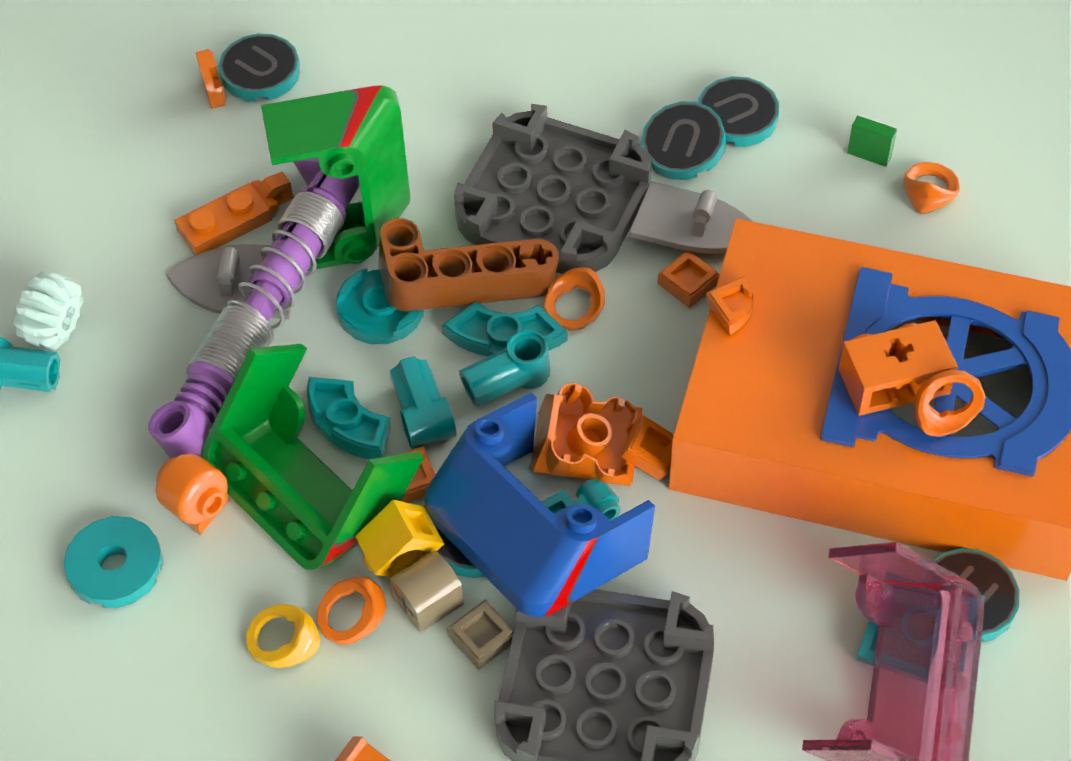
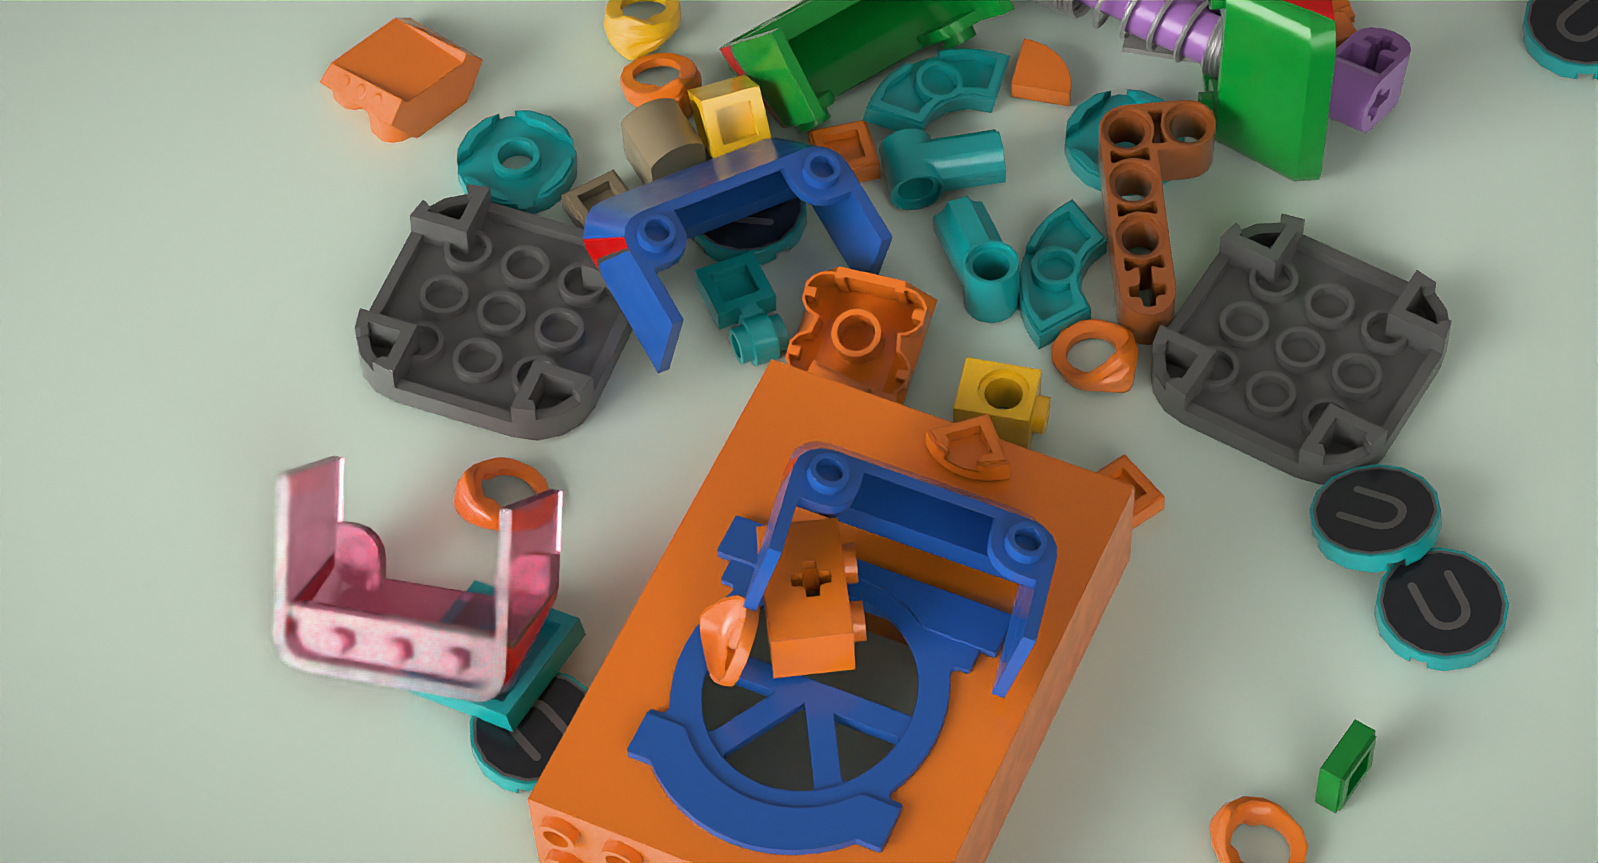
camera: 100 degrees right, 0 degrees up
(323, 358) = (1041, 75): none -> orange tile
(447, 734) = (527, 135): none -> teal tile
(637, 358) = (994, 385): none -> yellow brick
(685, 219) = (1220, 513): light grey shield -> none
(777, 675) = (469, 495): none -> orange piece
(851, 328) = (924, 517): none -> blue windscreen

